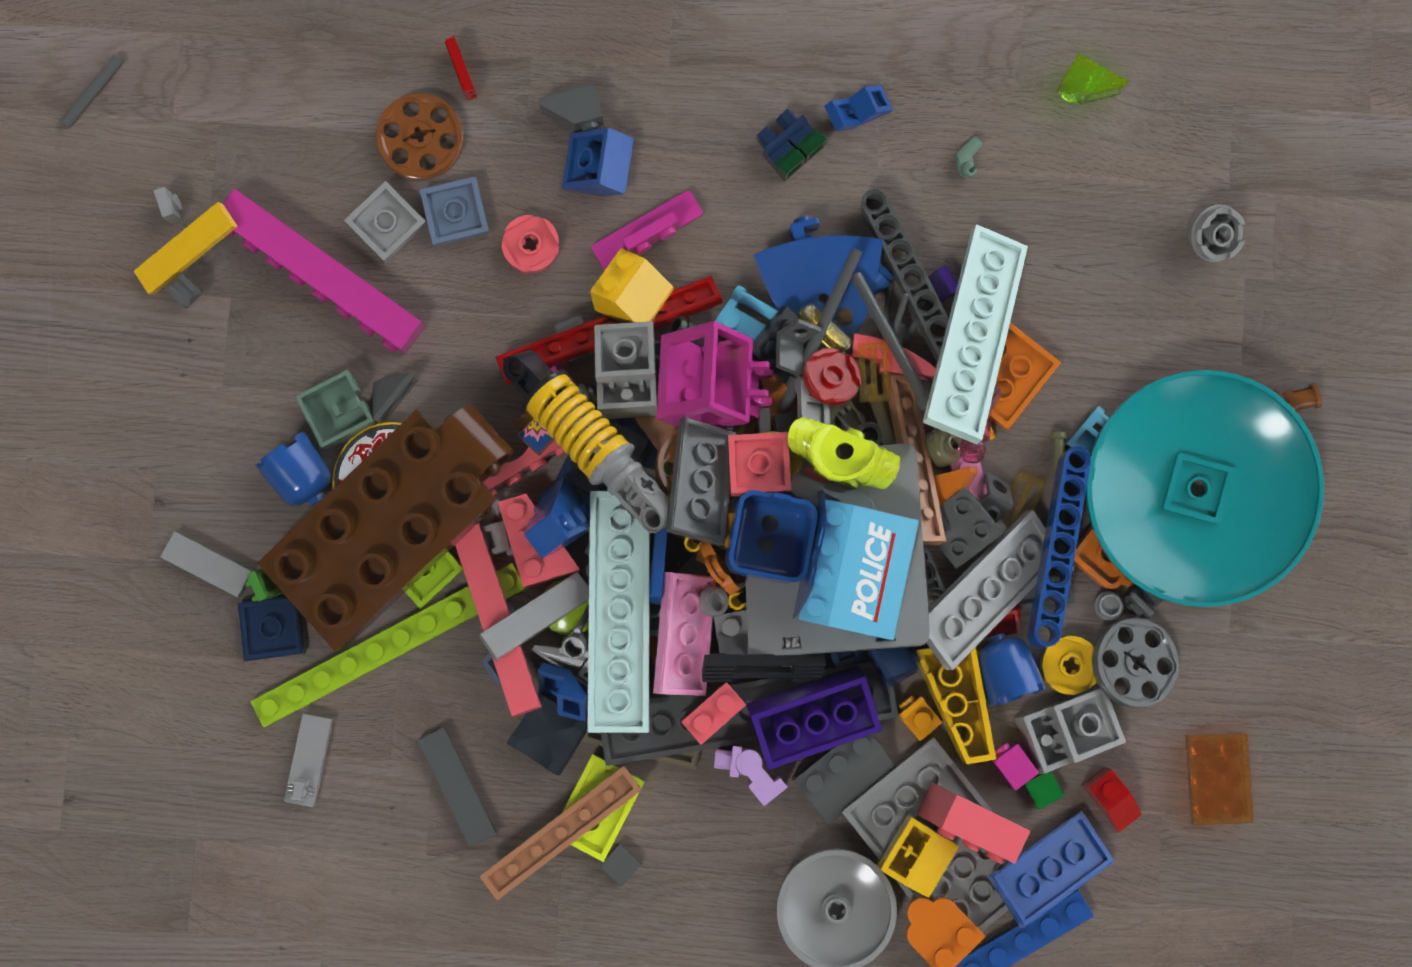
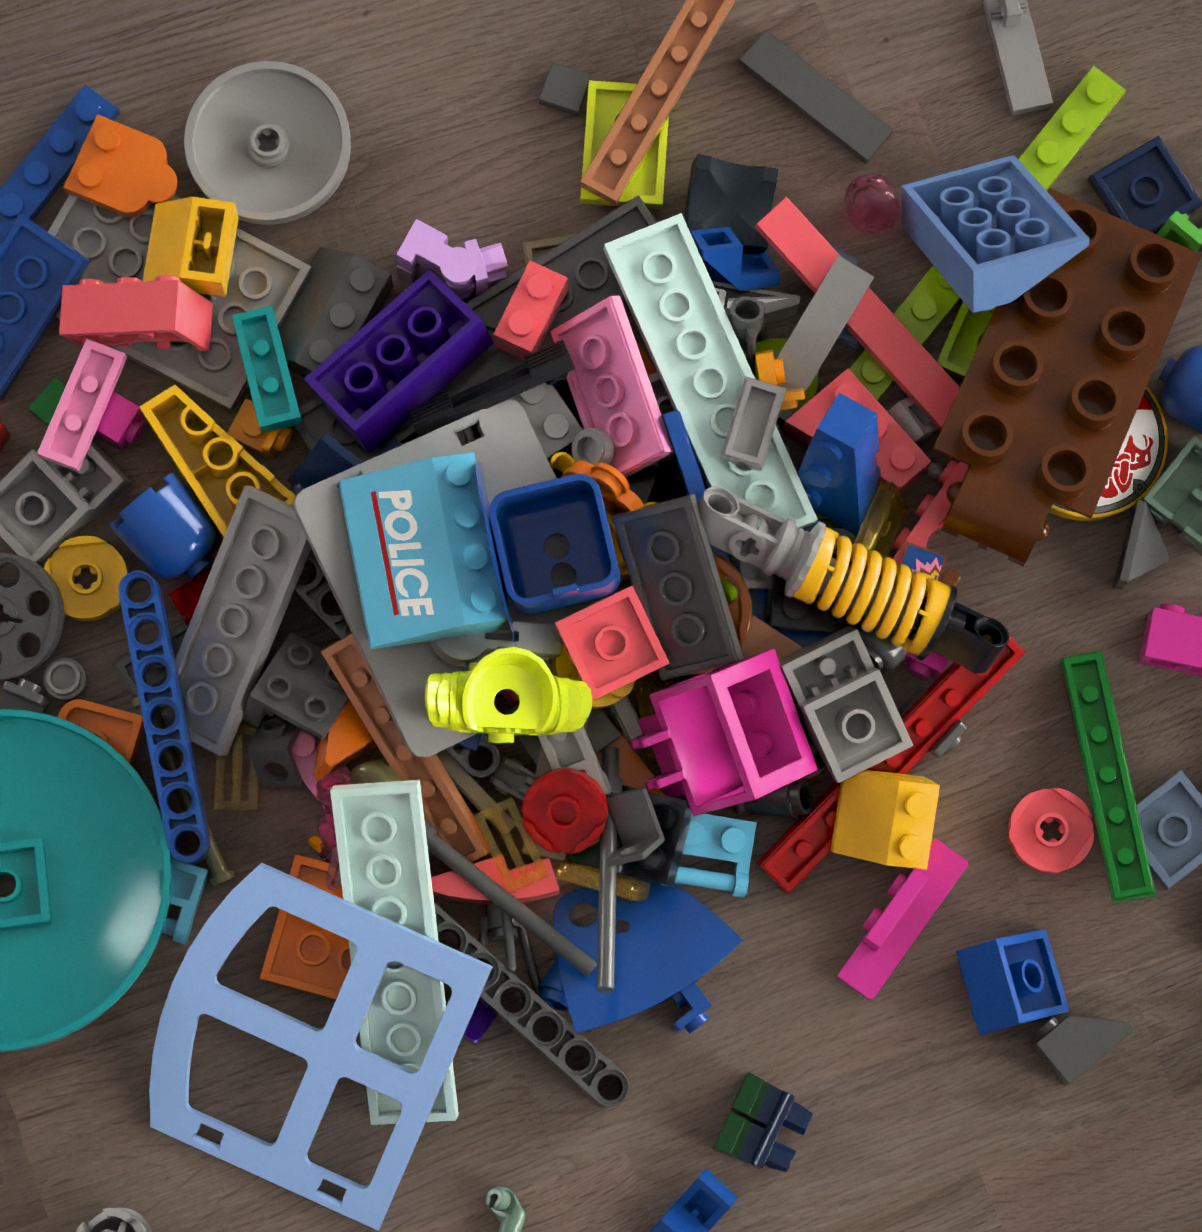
camera: 155 degrees right, 5 degrees down
(387, 635) = (990, 230): none -> medium blue slope
(455, 693) = (872, 204): none -> clear pink head
(480, 259) = (1107, 778): none -> green tile
(549, 475) = (883, 519): none -> clear yellow tile
(576, 600) = (772, 372): none -> light orange bracket
(604, 569) = (753, 423): none -> light grey tile
(901, 750) = (266, 369): none -> teal plate
(1033, 776) = (82, 405): none -> bright pink plate
(1039, 293) = (328, 1050): none -> light blue window

